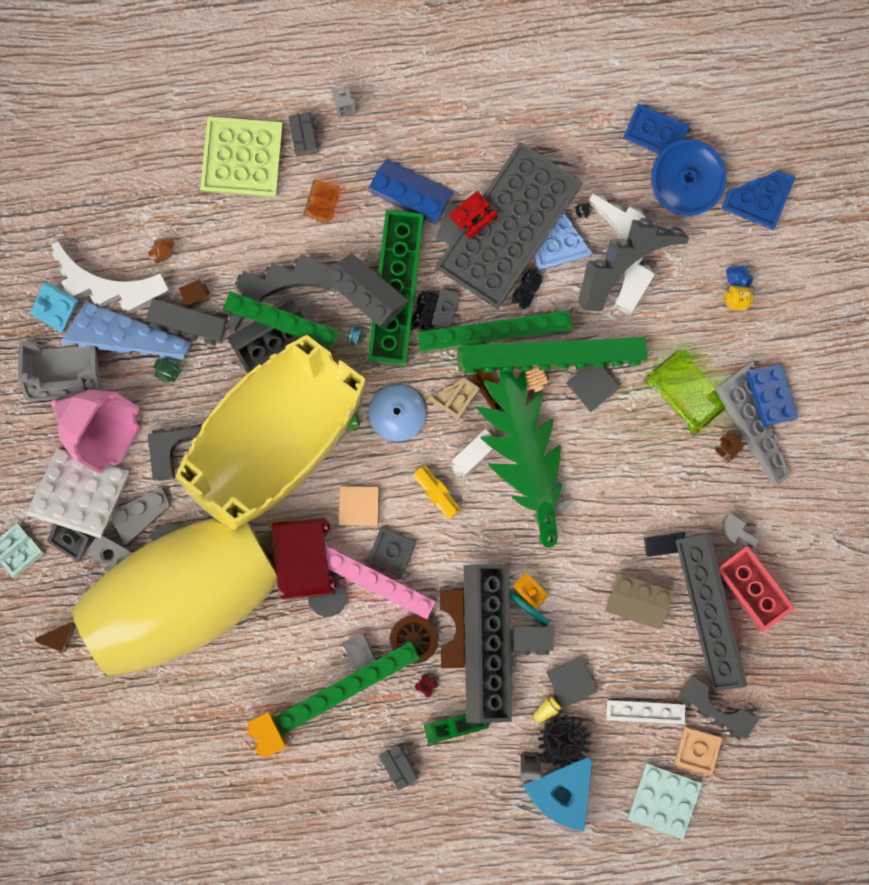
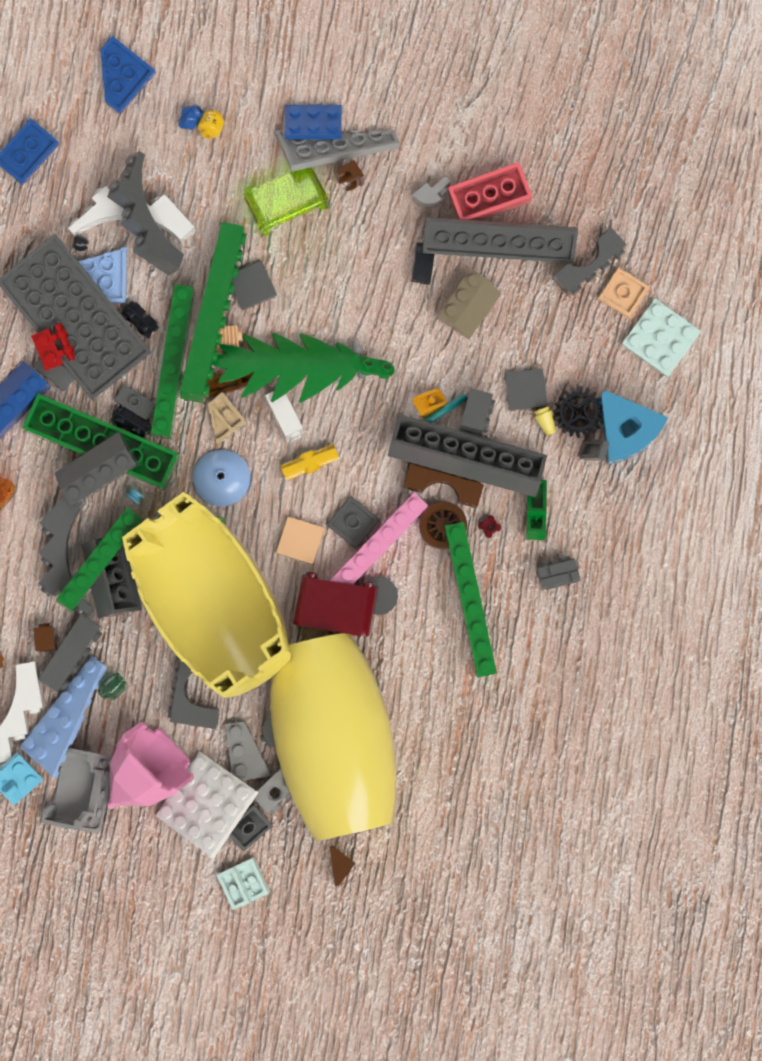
camera: 75 degrees left, 0 degrees up
(266, 734) = (492, 688): light orange brick -> none
(359, 651) = (439, 579): flat silver slope -> none
(645, 712) = (574, 330): white plate -> none
(688, 177) = (81, 134): blue dish -> none

